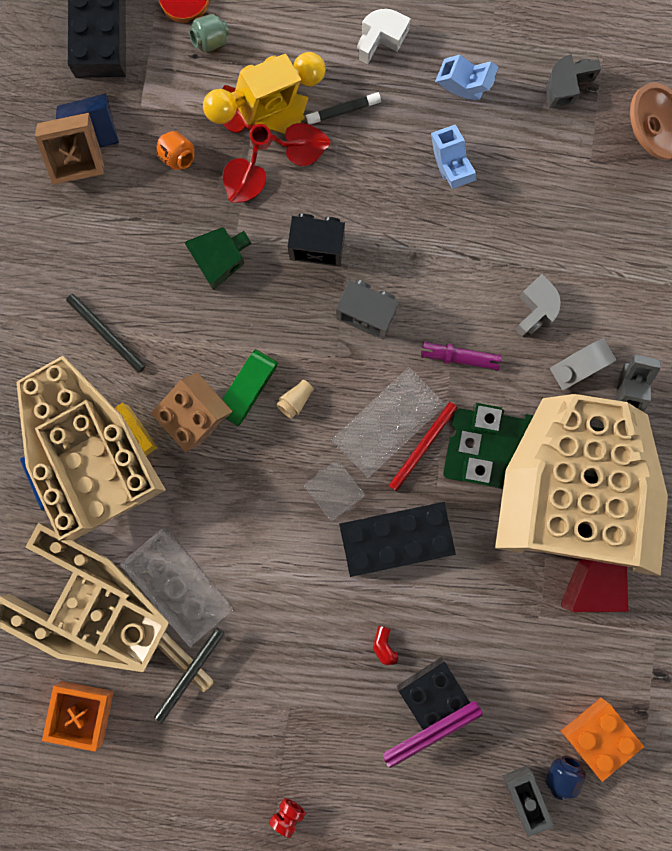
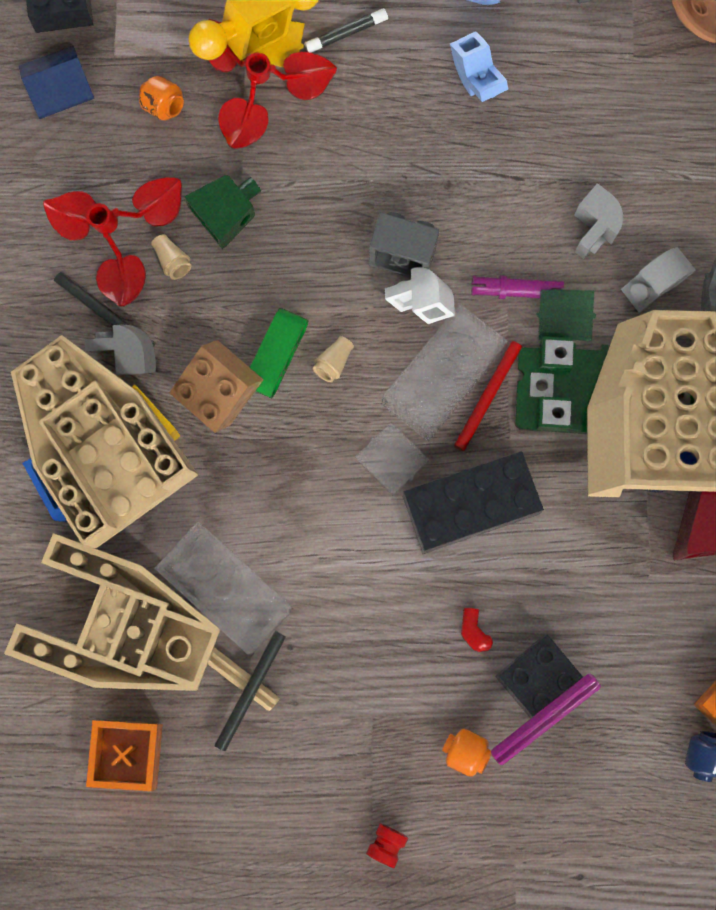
camera: 10 degrees left, 5 degrees down
(69, 148) = (41, 108): medium nougat brick -> none
(92, 245) = (75, 211): none -> red plant
(123, 368) = (131, 348): none -> light grey brick
(168, 294) = (172, 259): none -> tan cone
(316, 240) = (335, 176): black brick -> none
(364, 749) = (467, 752): none -> orange head
(380, 353) = (423, 294): none -> white brick
(499, 384) = (566, 314): none -> clear green piece
(528, 801) = (668, 787): dark grey brick -> none

